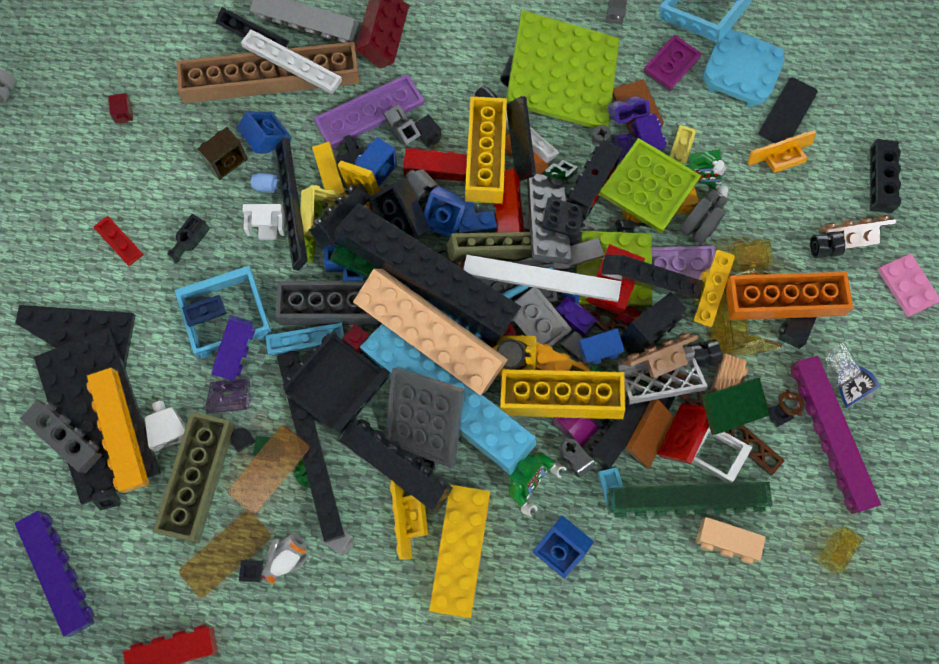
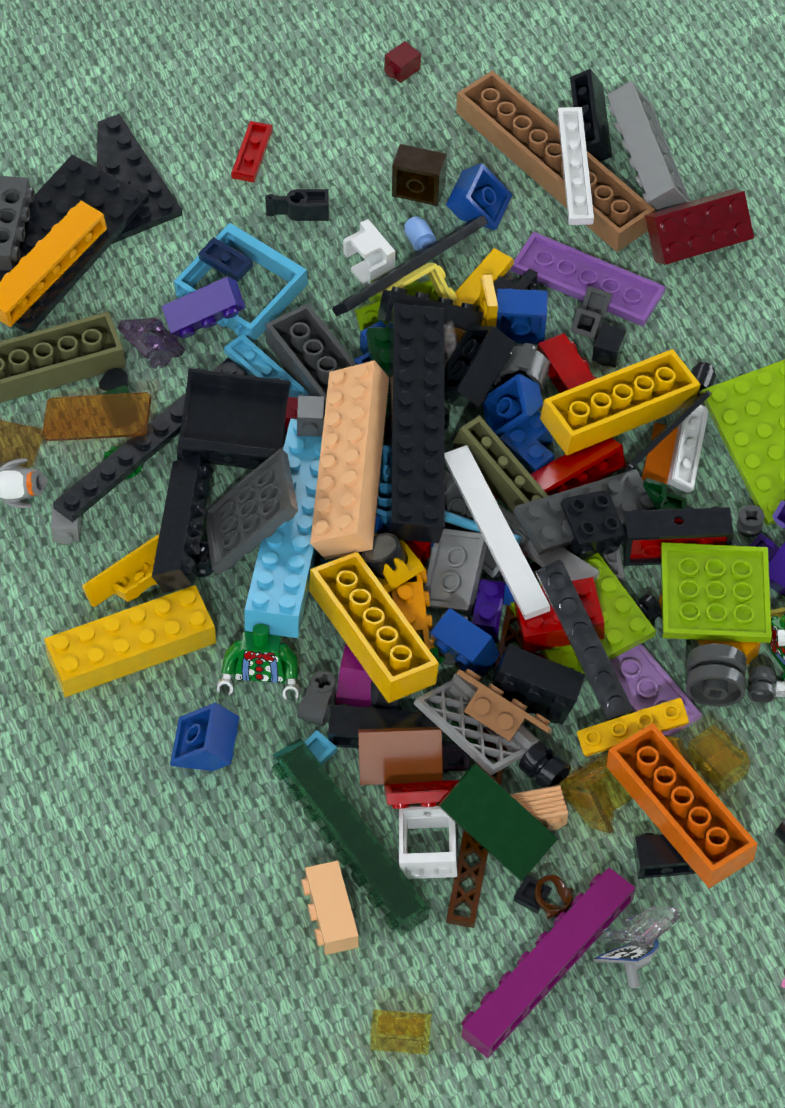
camera: 60 degrees right, 15 degrees down
(163, 427) = (77, 302): white torso -> none
(374, 334) = (310, 416): none -> dark grey brick

